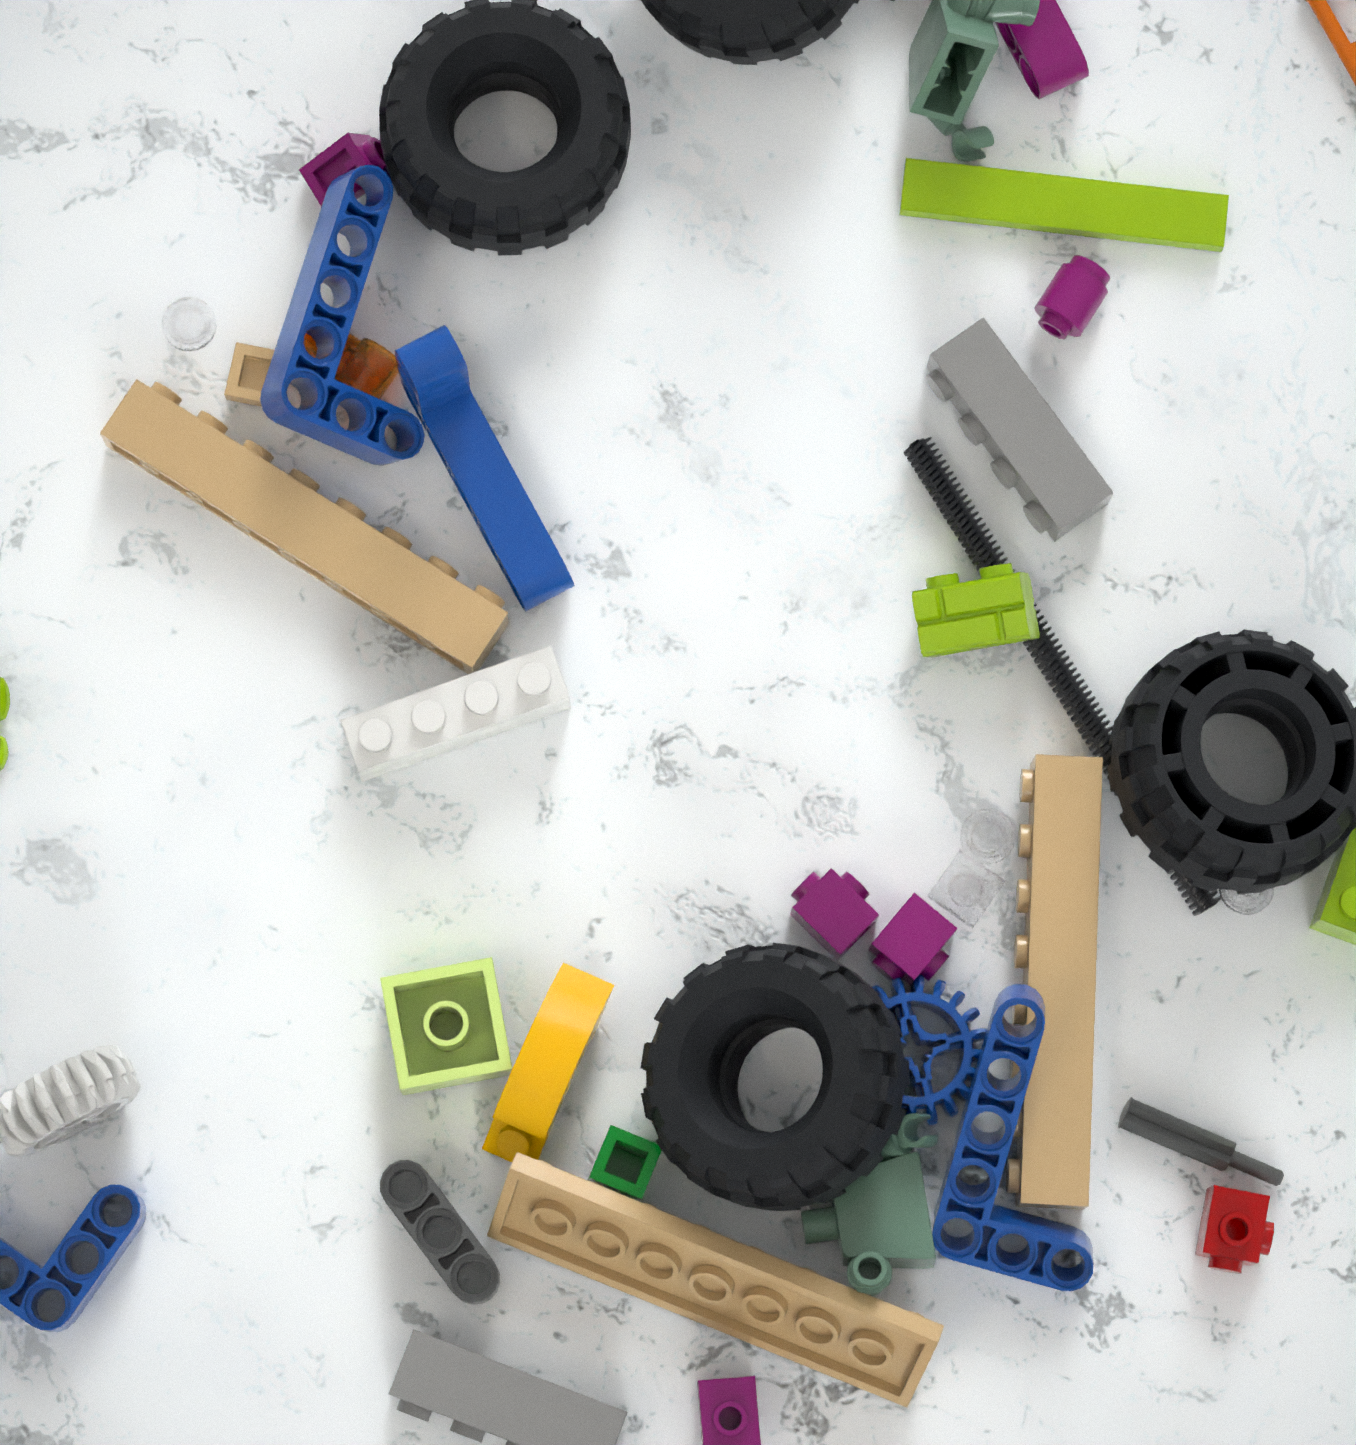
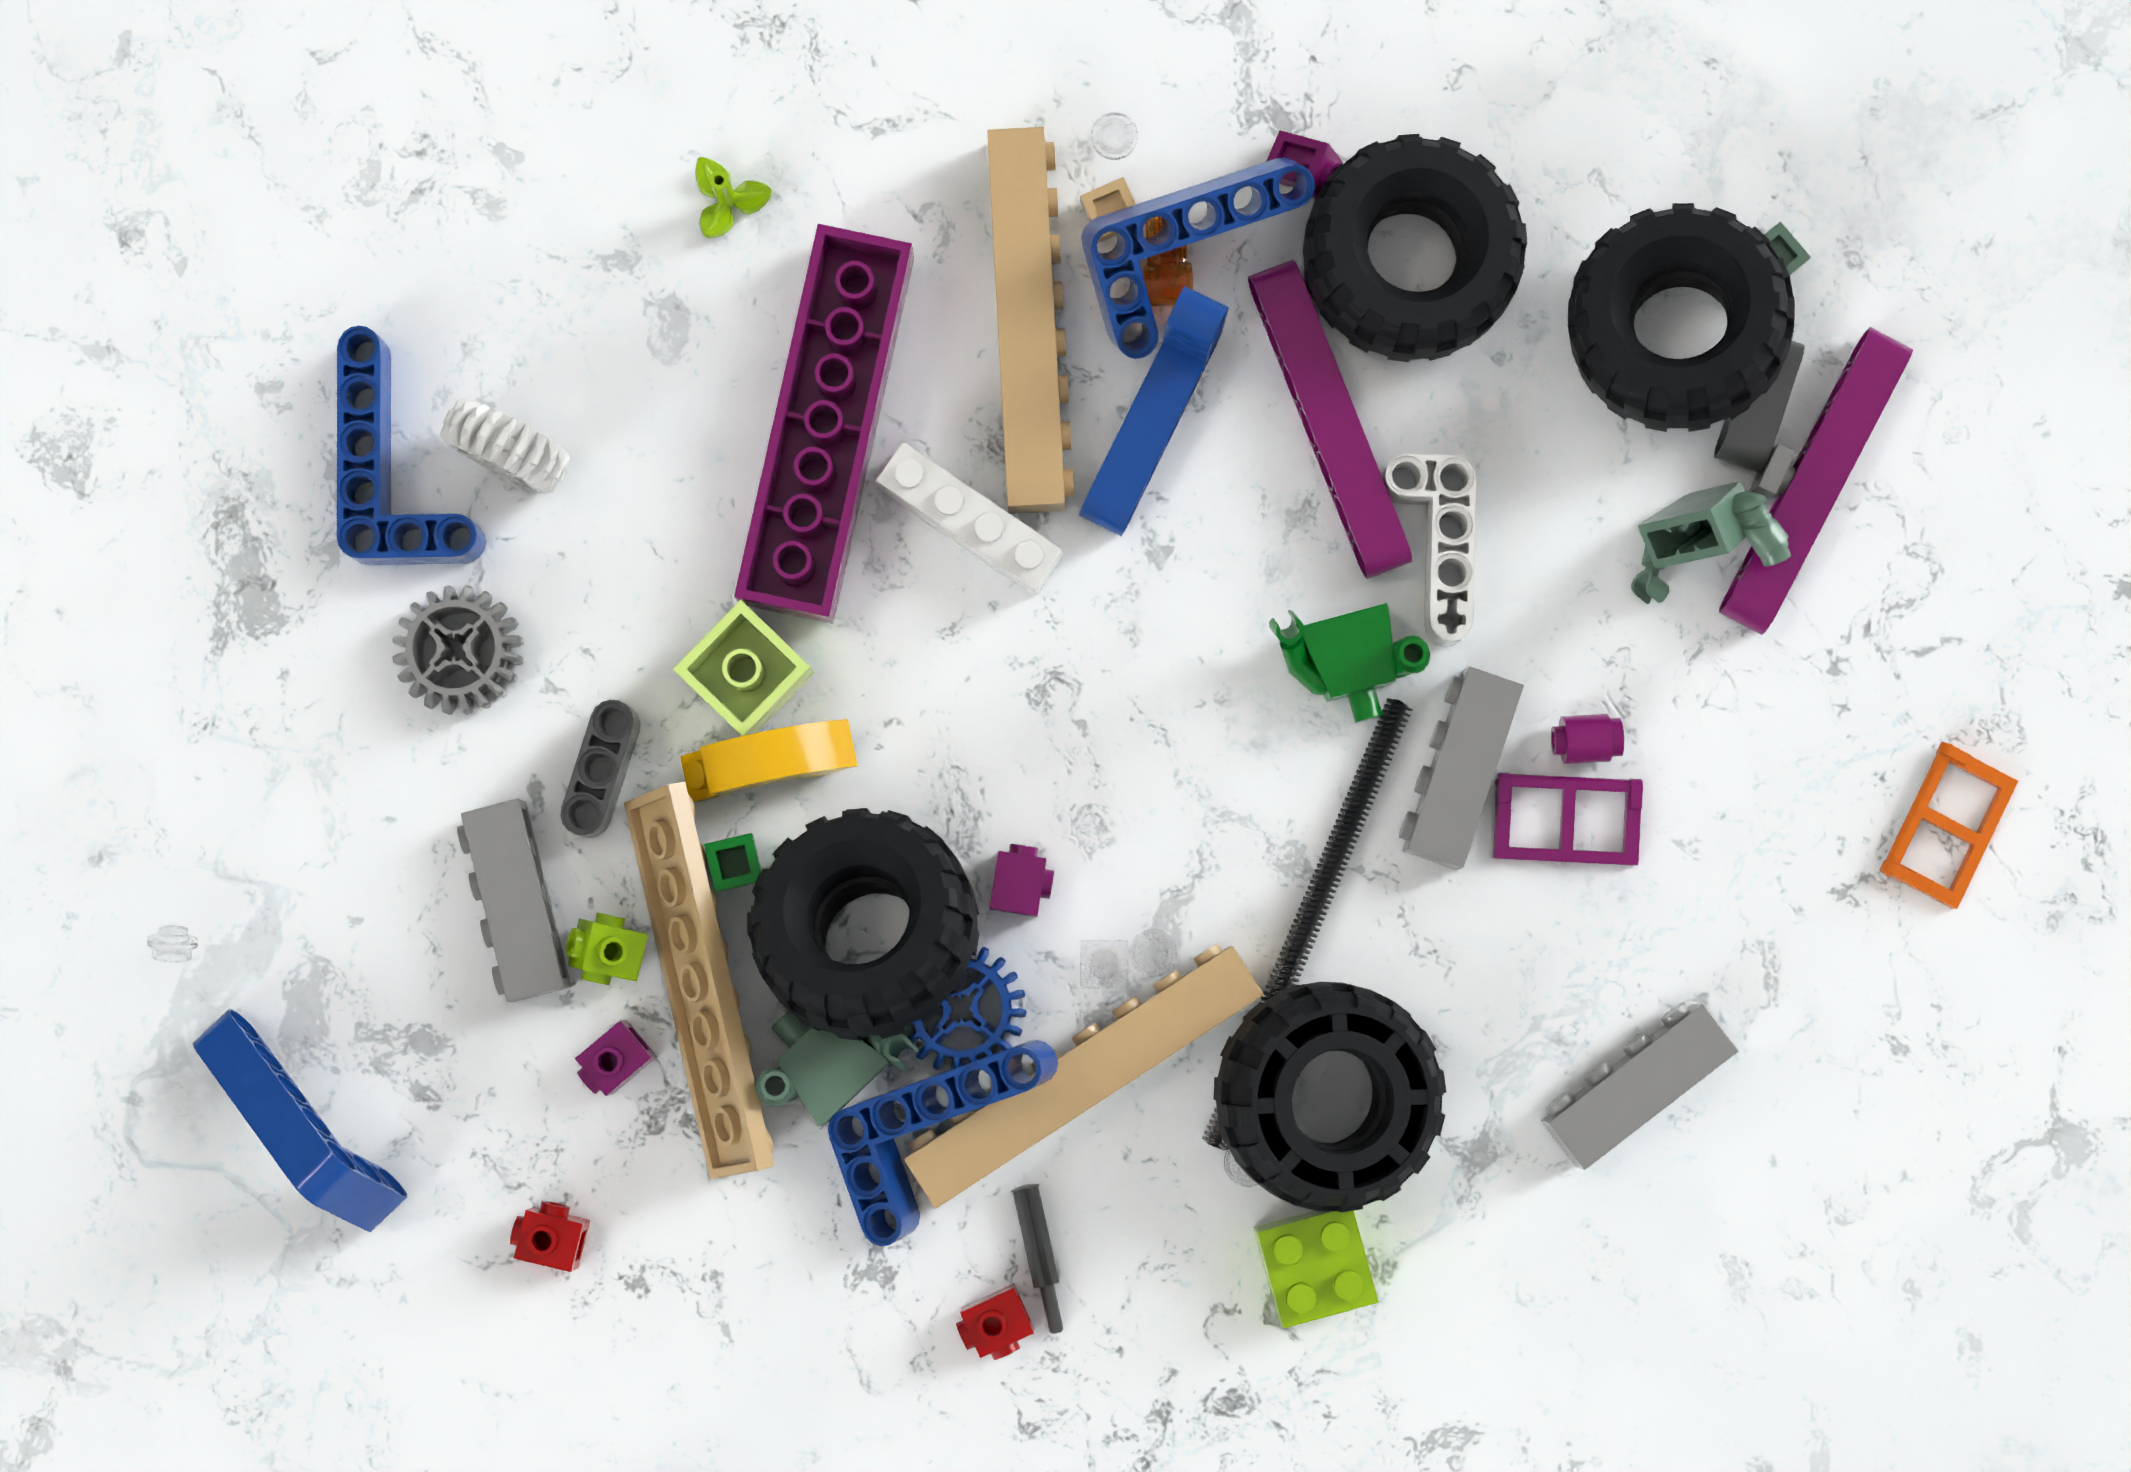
camera: 55 degrees right, 5 degrees up
(176, 1296) = (429, 622): none -> light grey gear
(267, 783) = (825, 424): none -> magenta brick
(604, 317) = (1329, 419): none -> magenta beam
(619, 1347) = (605, 949): none -> lime brick
(797, 305) = (1439, 548): none -> white beam
(842, 455) = (1350, 657): none -> green torso
(912, 942) = (1036, 953): magenta brick -> none
(976, 612) = (1303, 831): lime brick -> none
(1064, 205) = (1653, 685): lime tile -> none
(1161, 301) = (1632, 816): none -> magenta window

